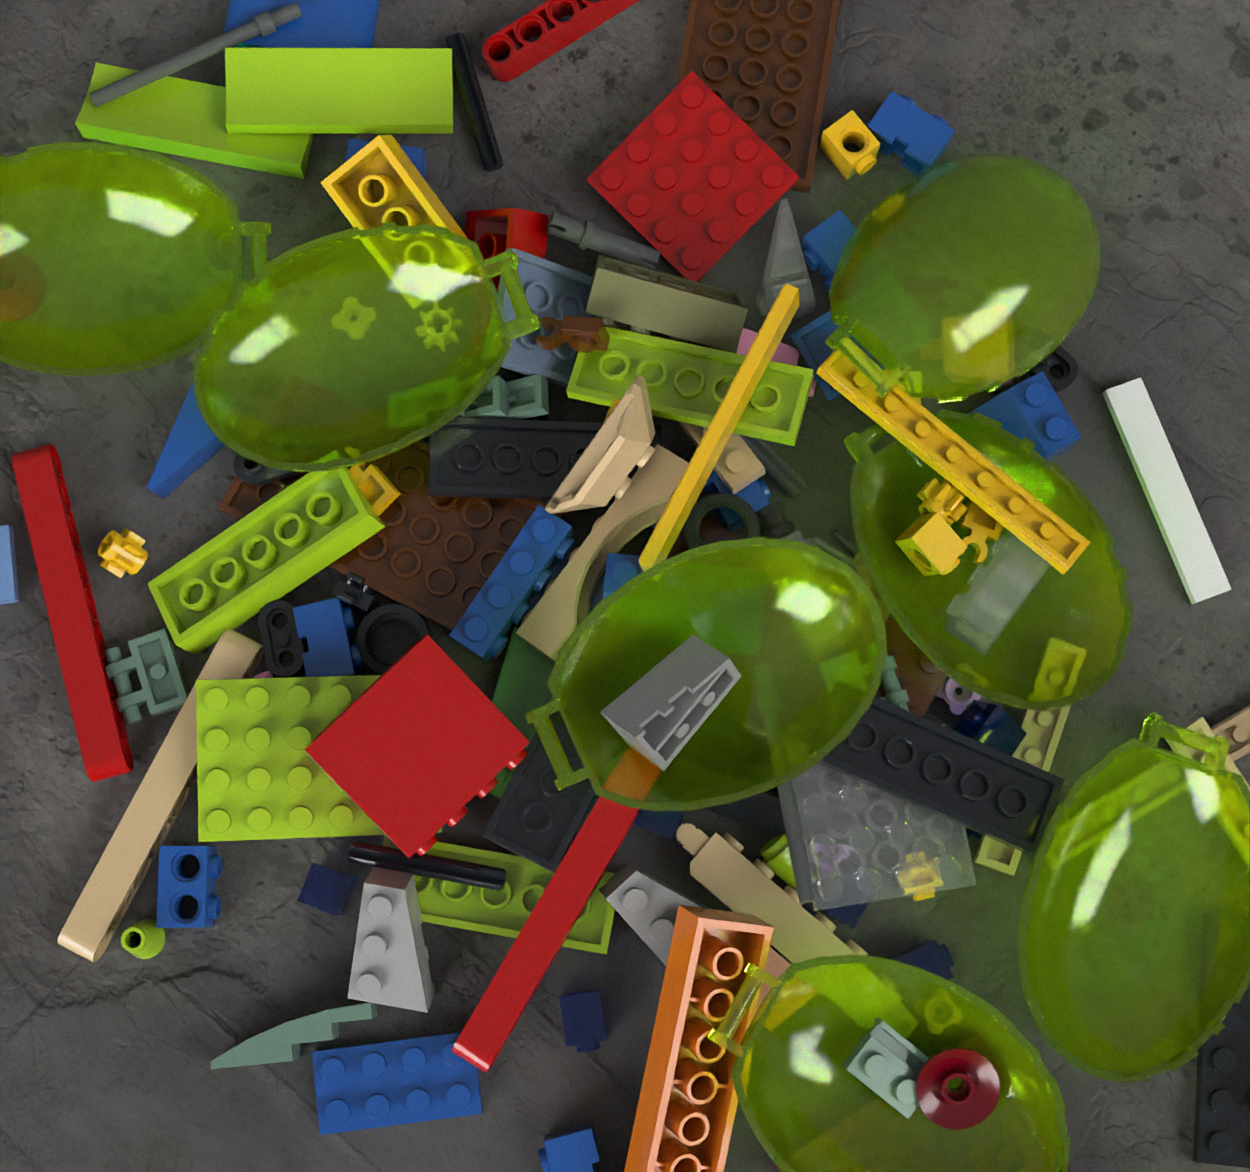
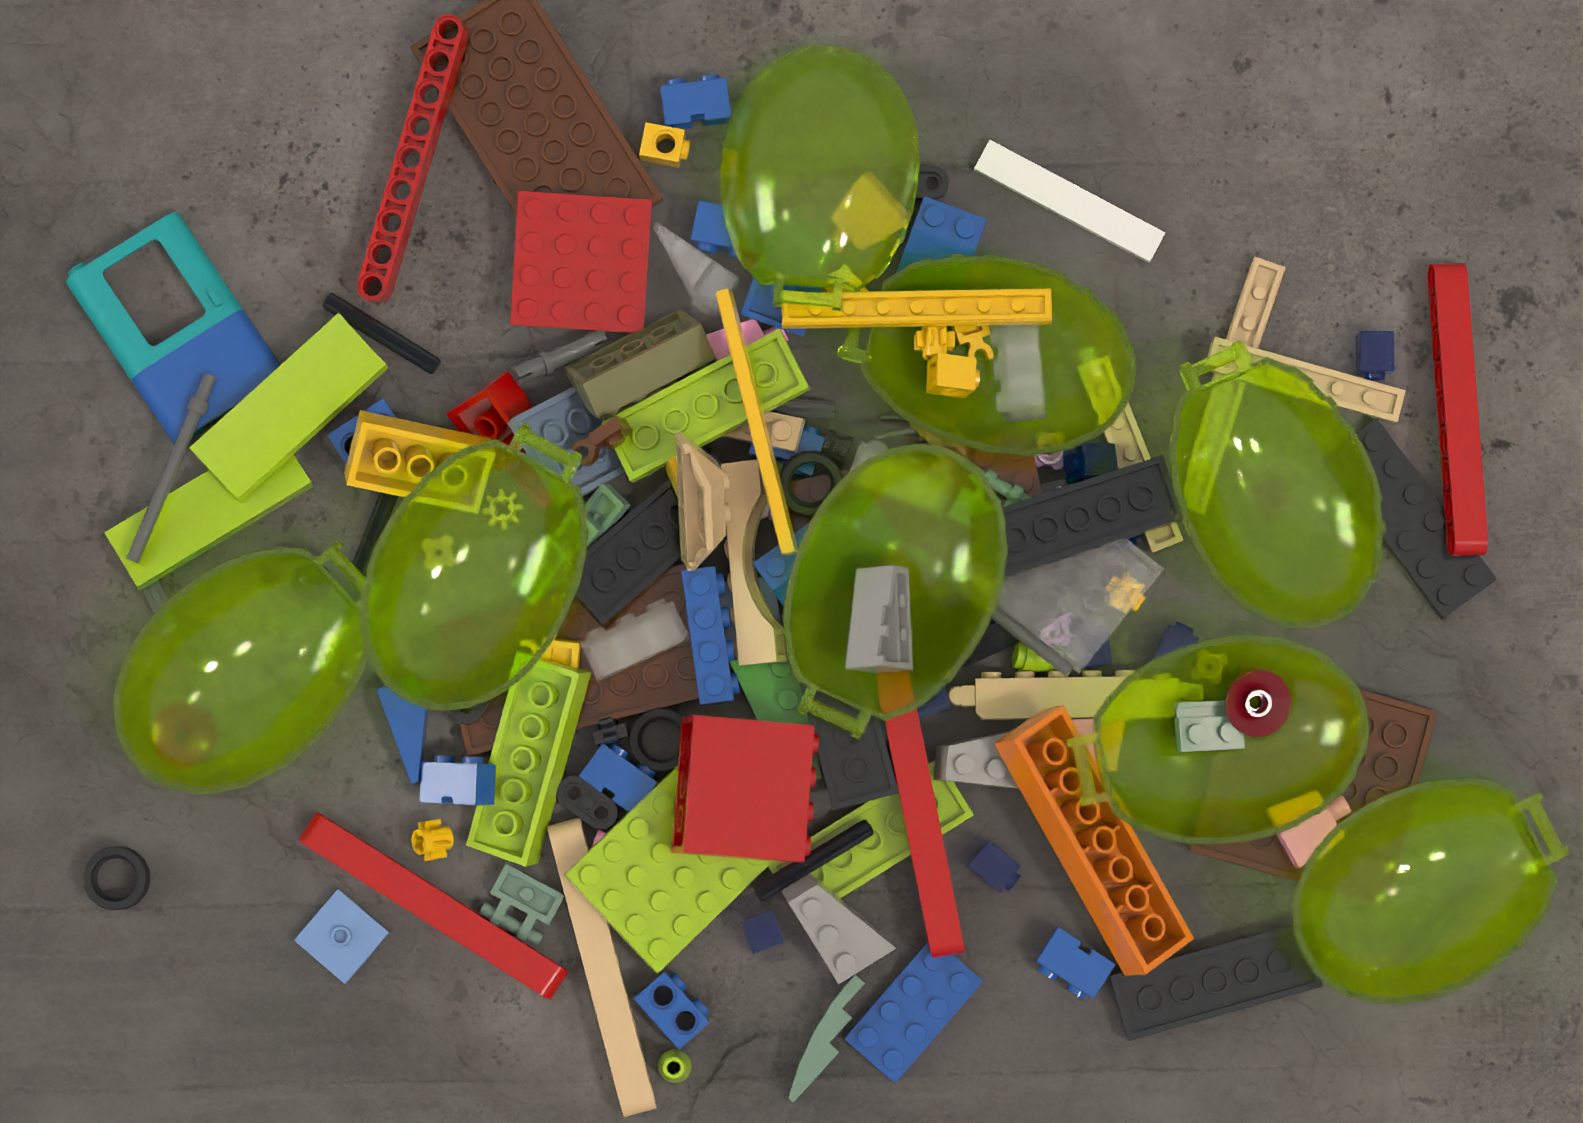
camera: 45 degrees left, 5 degrees up
(187, 523) = (457, 782): none -> brick
(446, 531) = (634, 639): none -> clear brick

